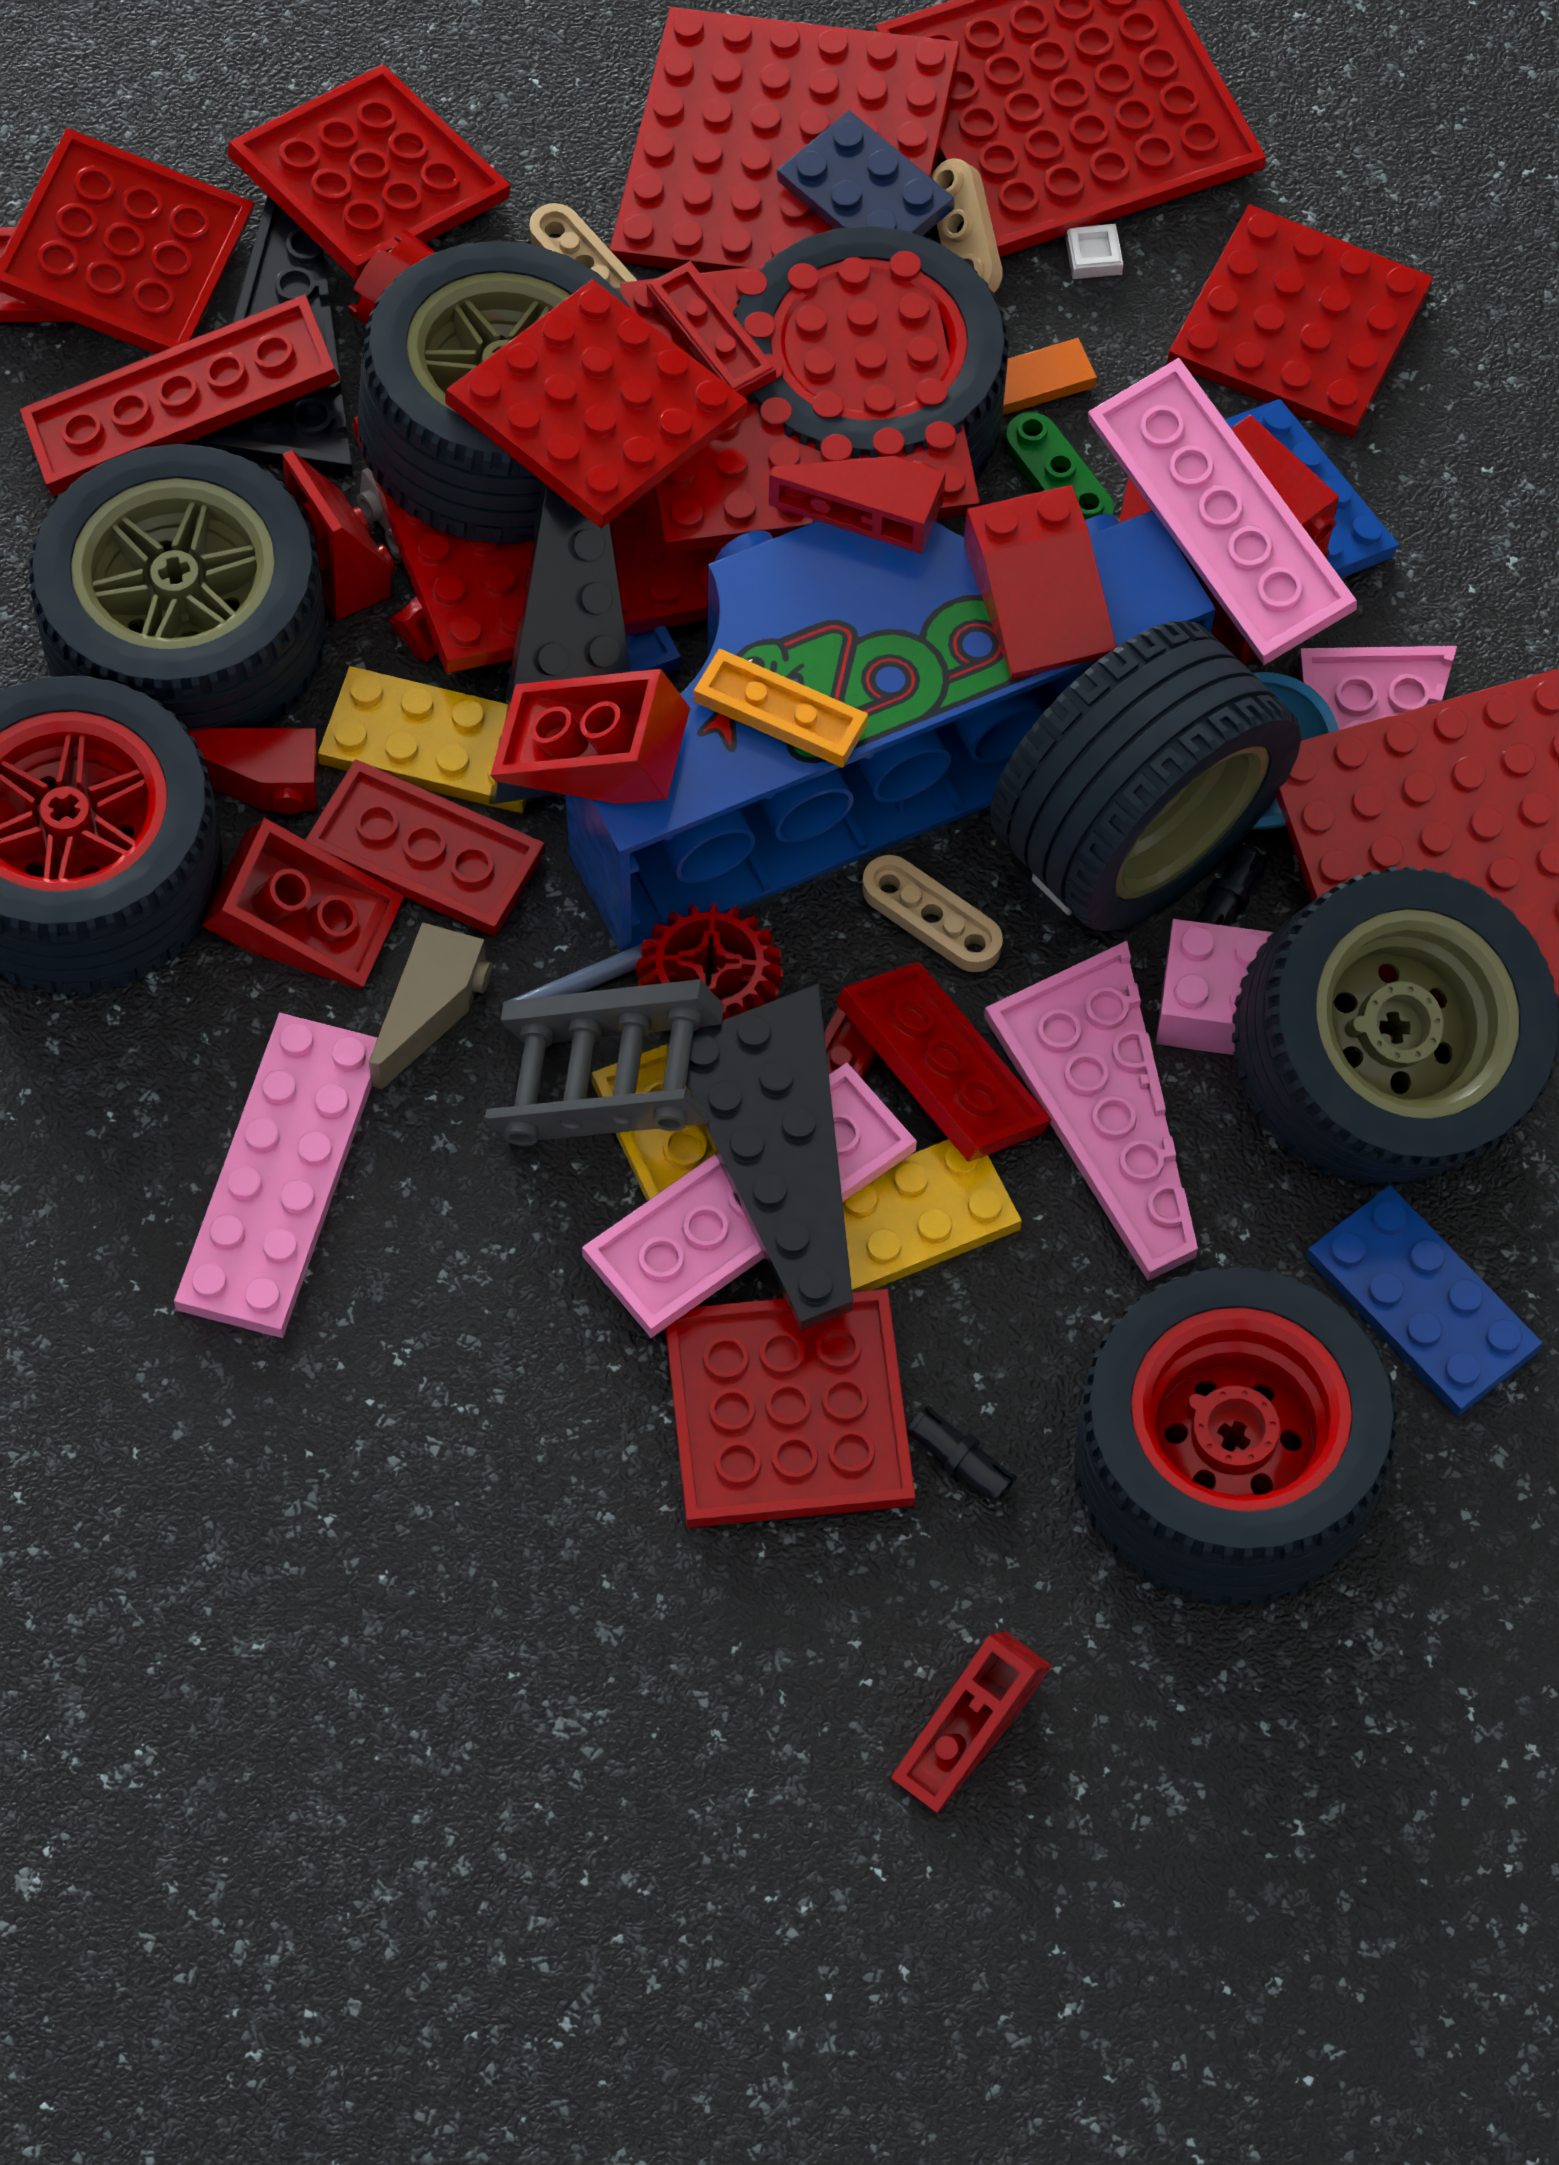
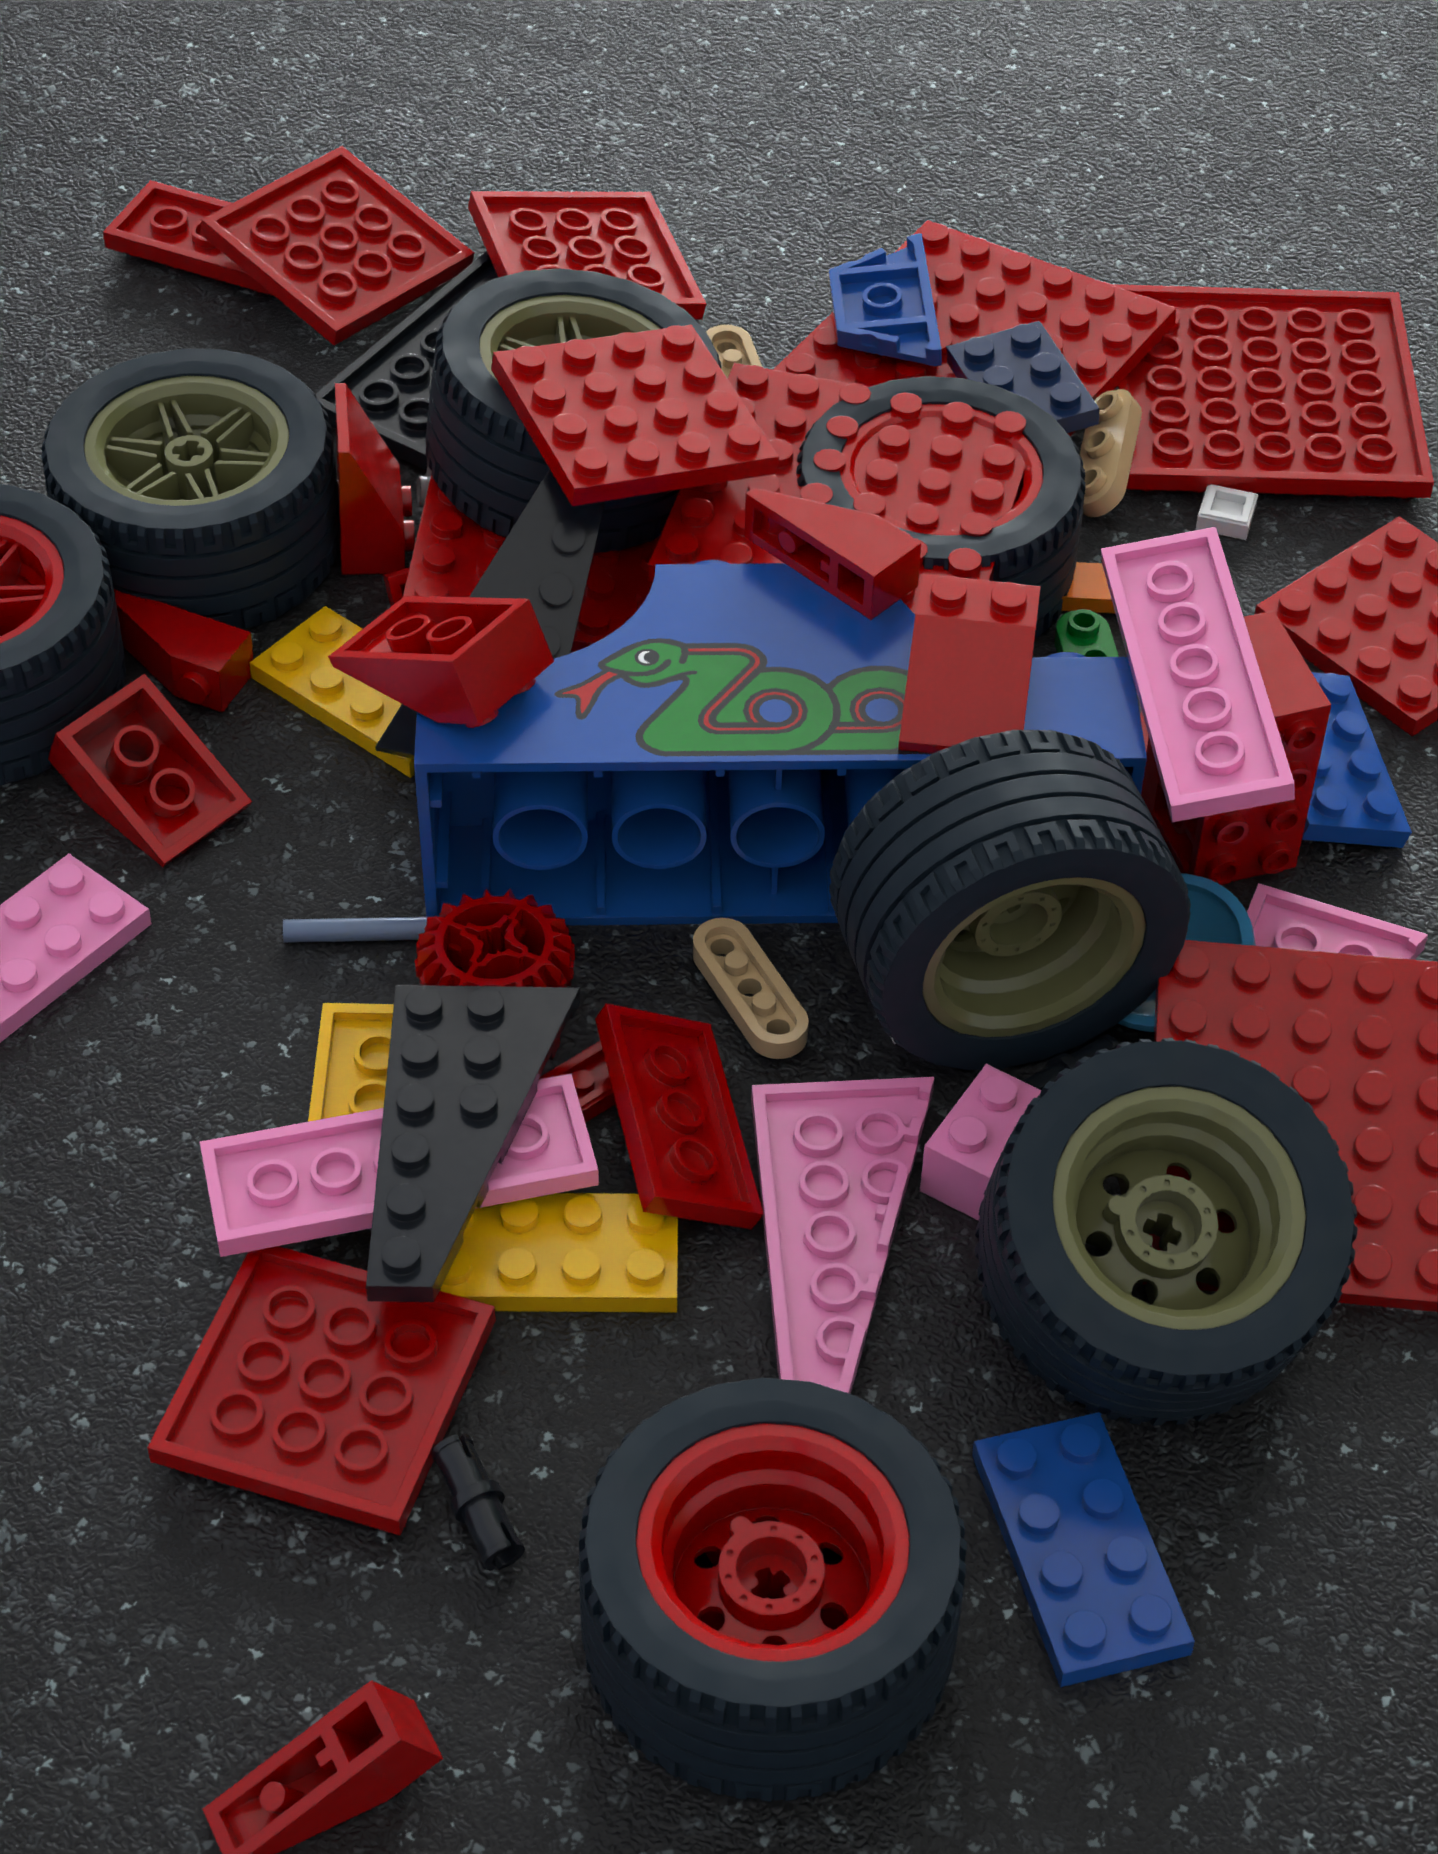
camera: 25 degrees right, 15 degrees down
(181, 392) = (352, 351): red plate -> none
(427, 847) = (298, 769): red plate -> none
(430, 998) = (208, 890): dark tan slope -> none
(585, 1020) = (321, 947): dark grey fence -> none
(695, 136) = (887, 305): none -> blue wing
(710, 329) = (790, 414): red tile -> none
(781, 707) = (645, 691): light orange plate -> none

